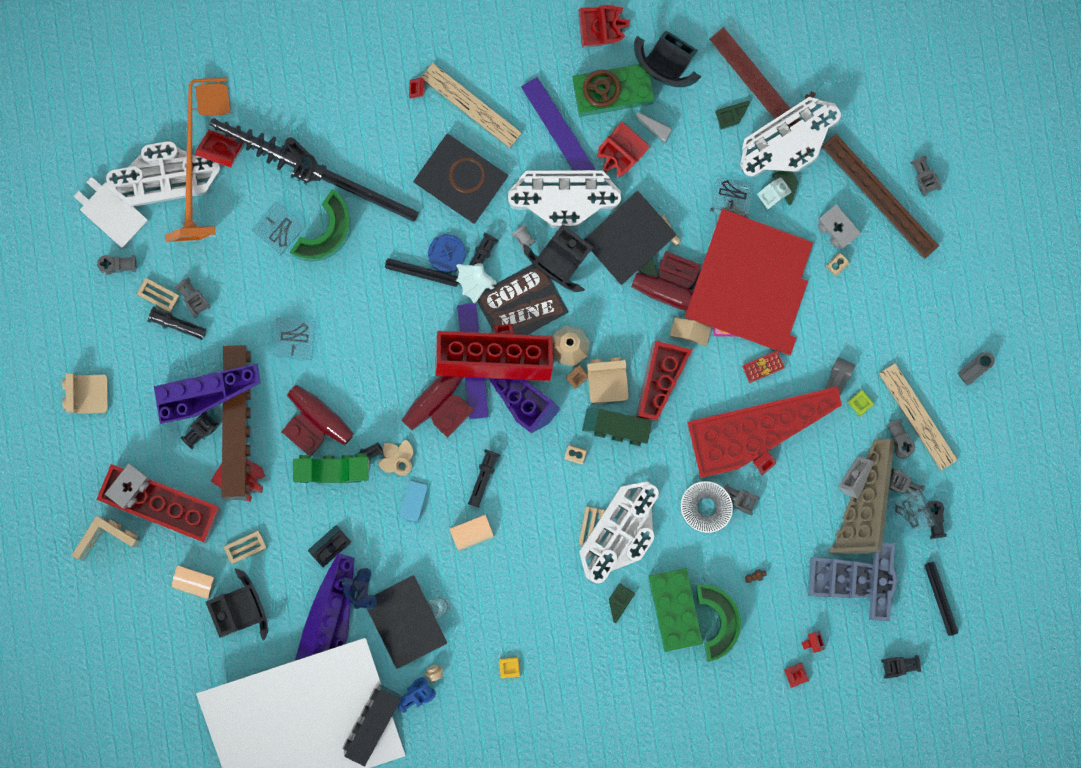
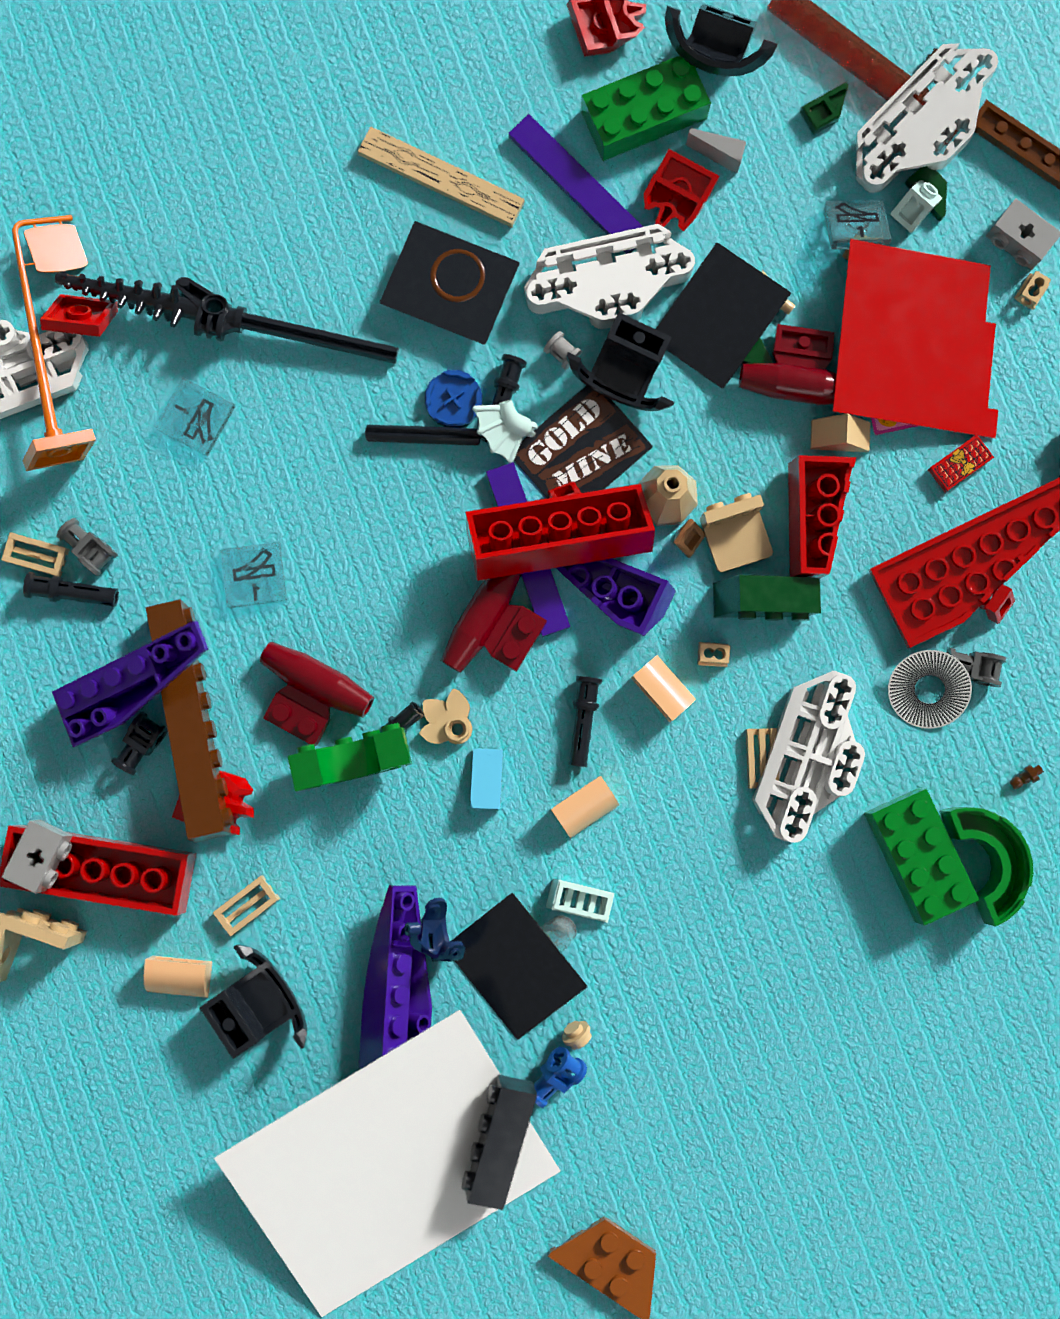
camera: 15 degrees left, 0 degrees up
(329, 546) = (374, 875): black slope -> none
(333, 238) = (277, 413): green brick -> none
(417, 88) = (355, 167): red slope -> none
(470, 598) = (555, 896): none -> light aqua slope
(509, 667) = (688, 999): yellow tile -> none
(538, 468) = (663, 688): none -> light nougat brick
(606, 82) = (632, 86): reddish brown piece -> none
(619, 601) = (831, 861): dark green tile -> none

